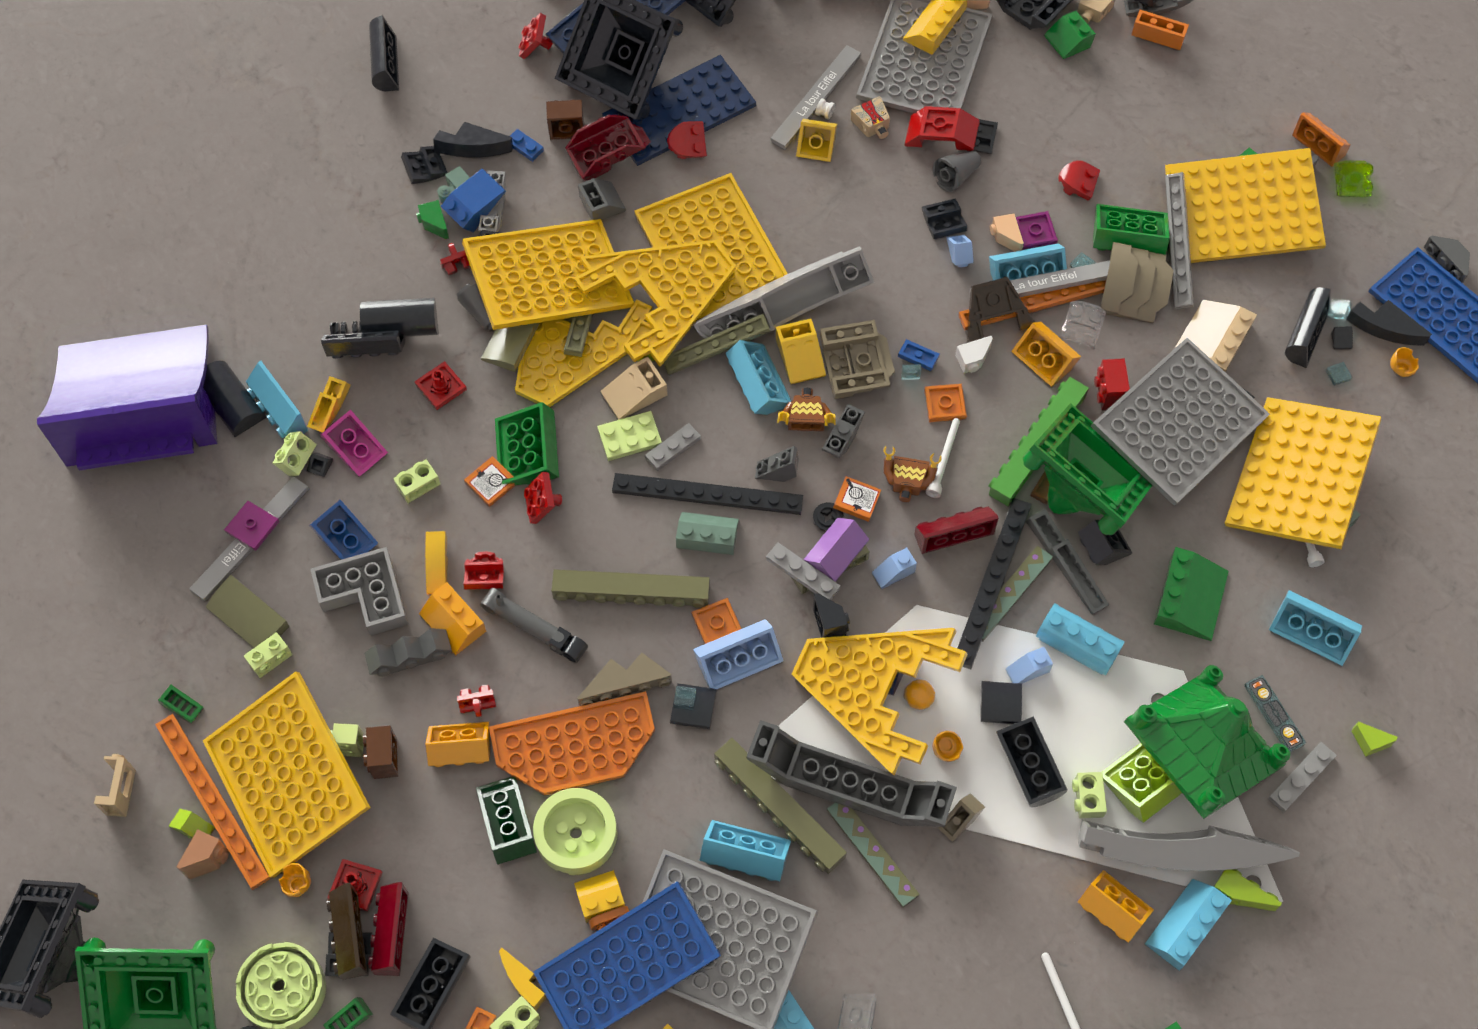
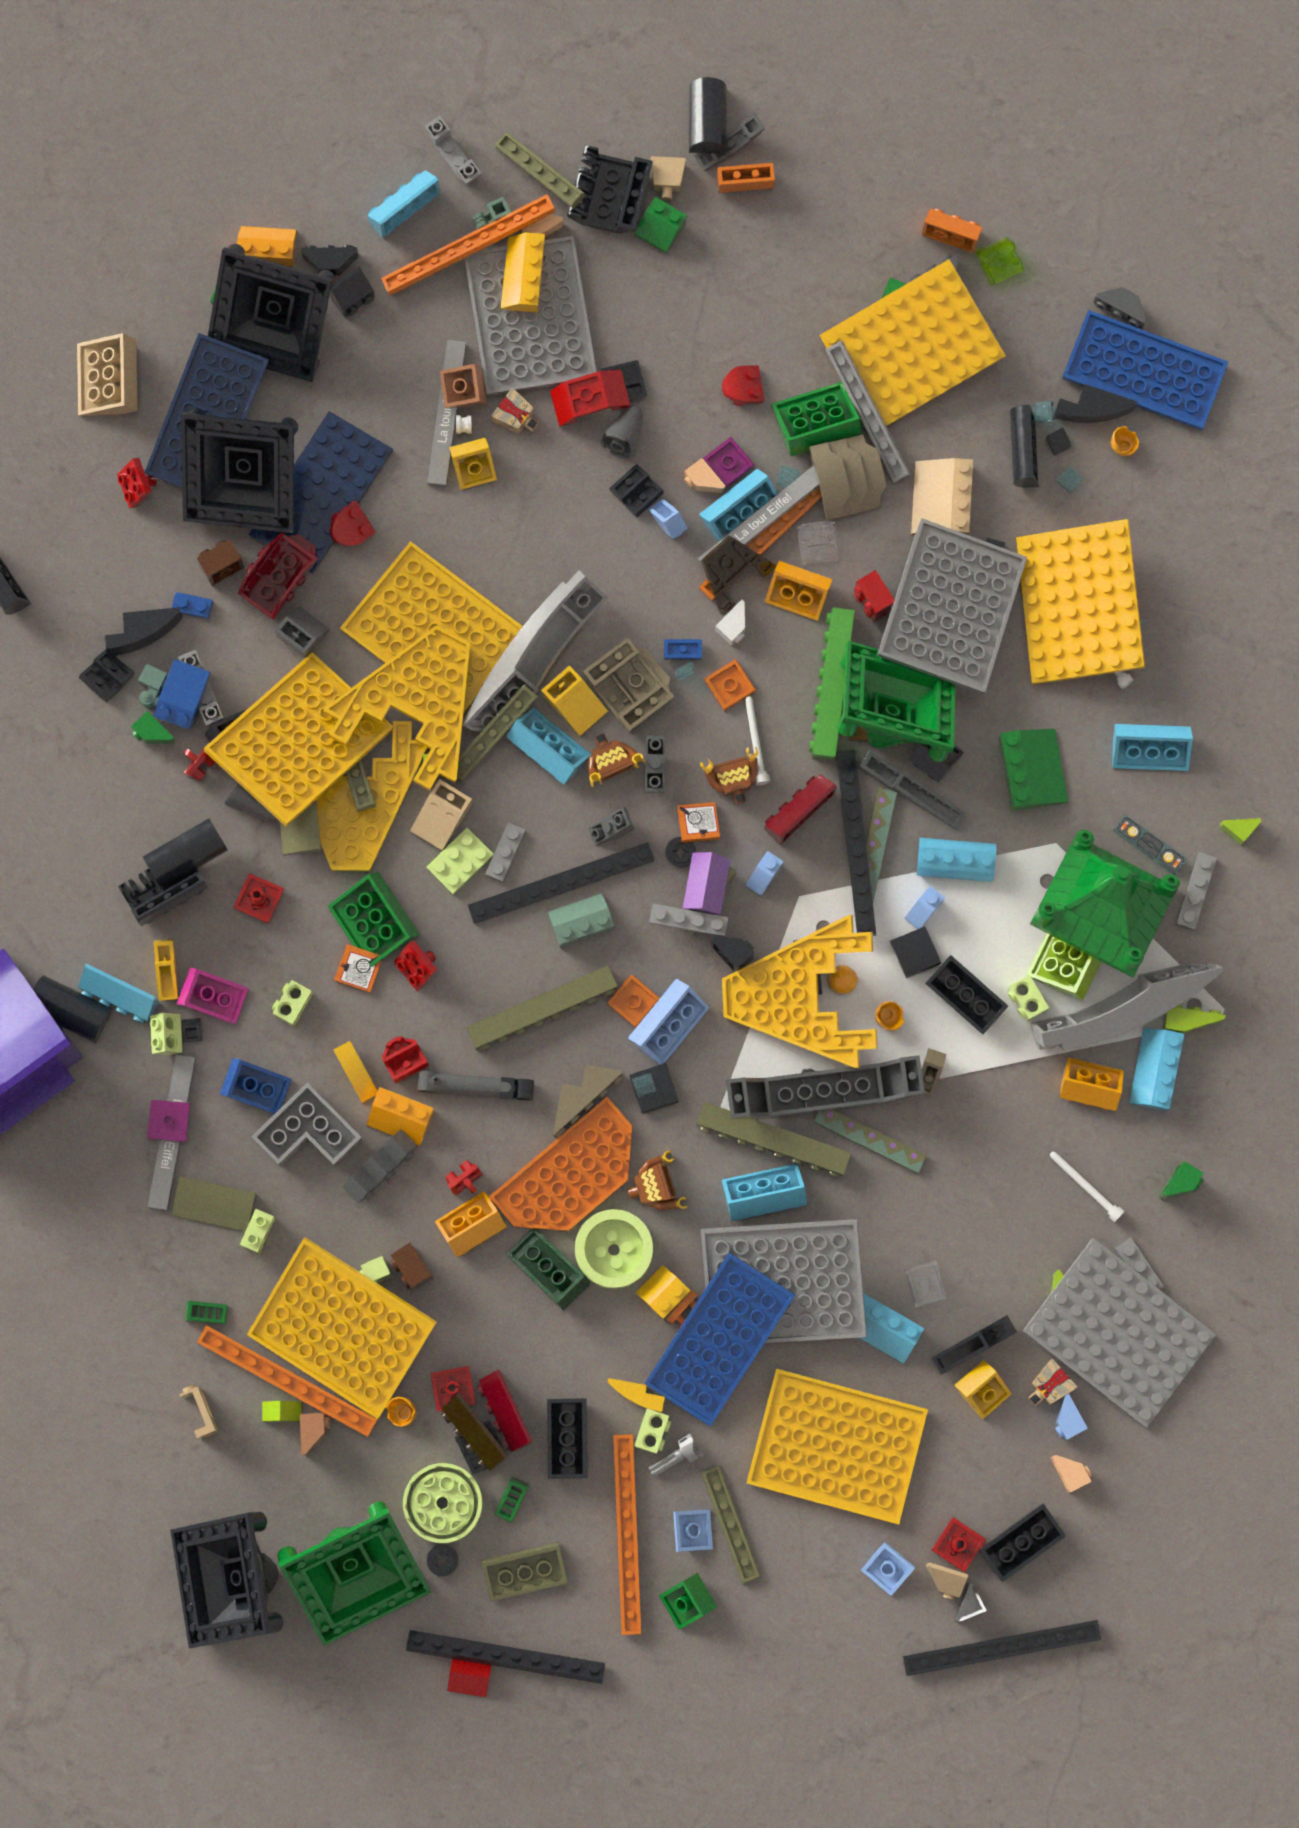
camera: 30 degrees left, 15 degrees up
(646, 792) = (655, 1185): none -> dark orange torso
(840, 80) = (463, 386): none -> nougat slope

